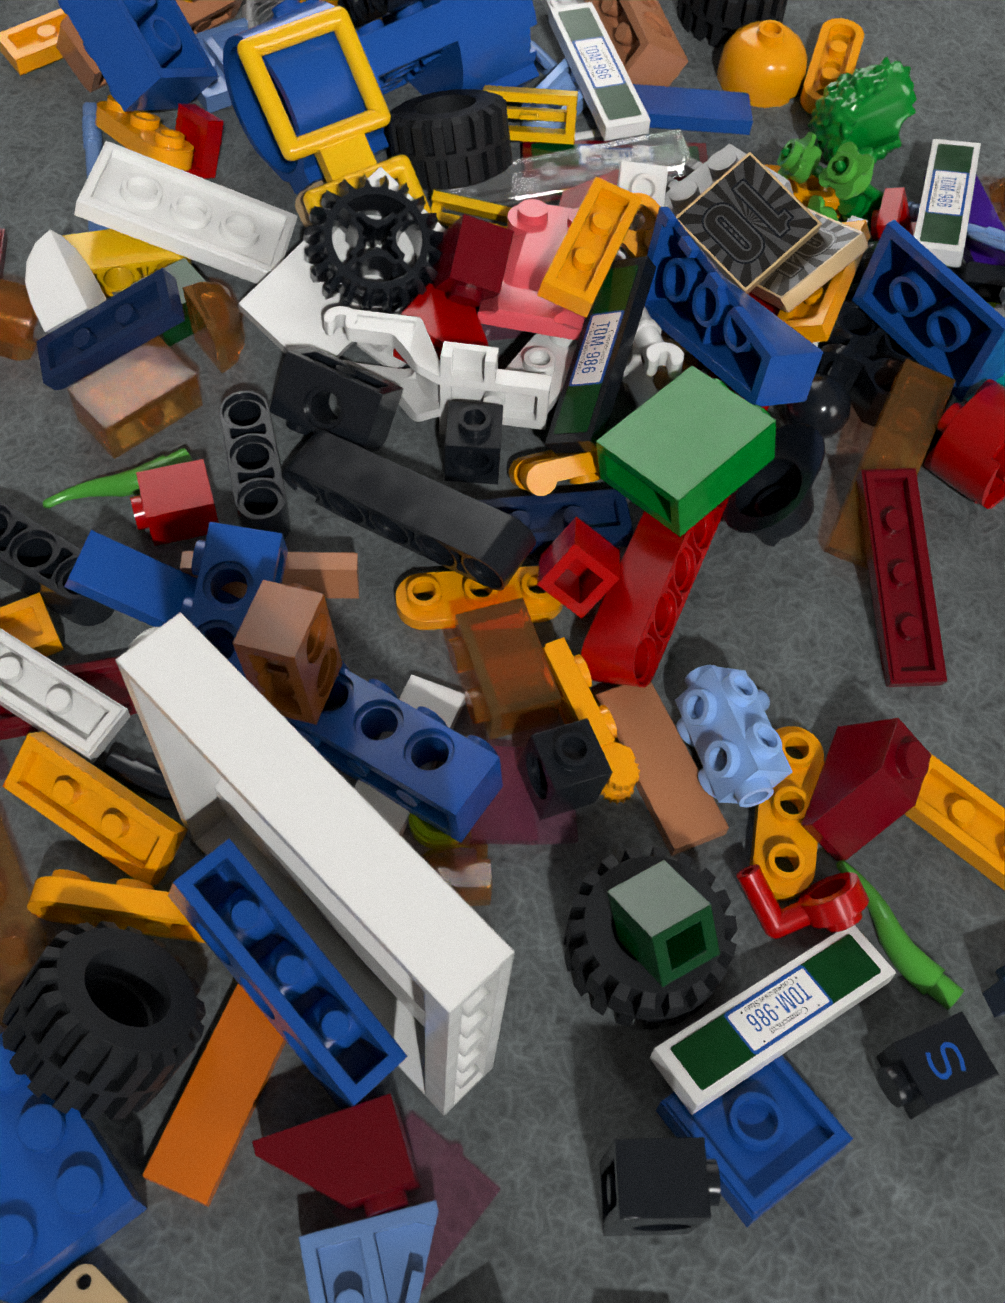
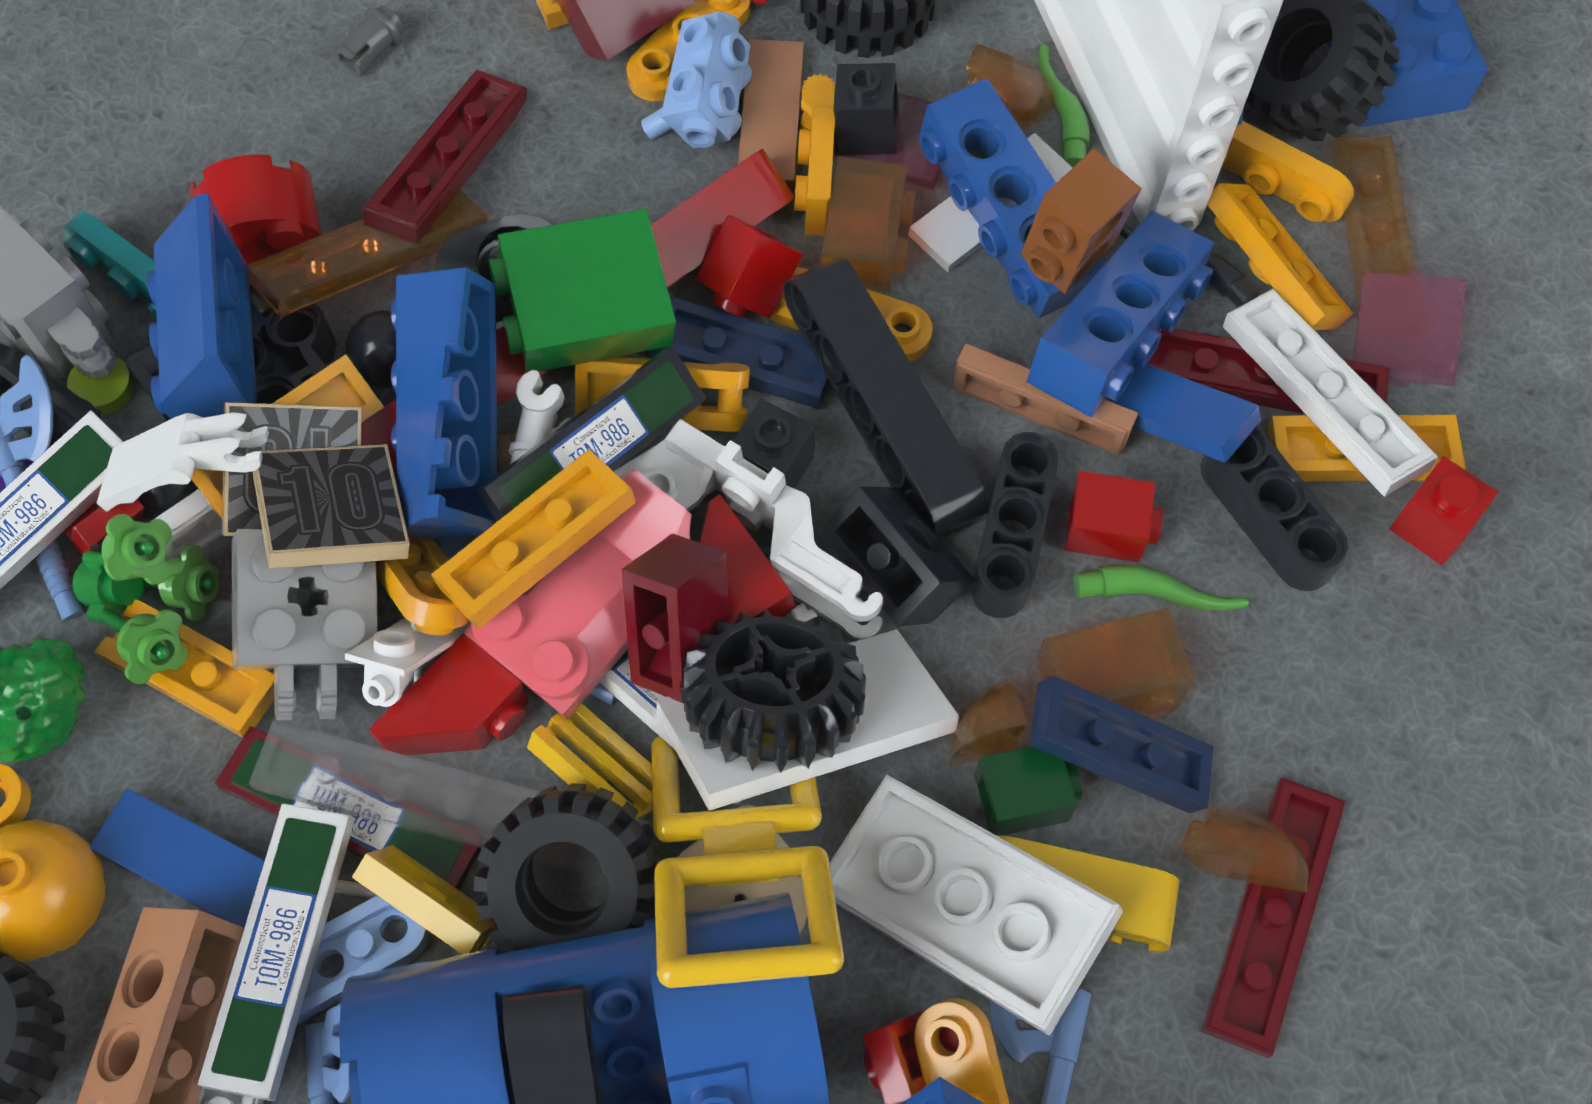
camera: 150 degrees left, 5 degrees up
(59, 282) = (1157, 824): white brick -> none
(860, 200) = (173, 452): none -> white arm

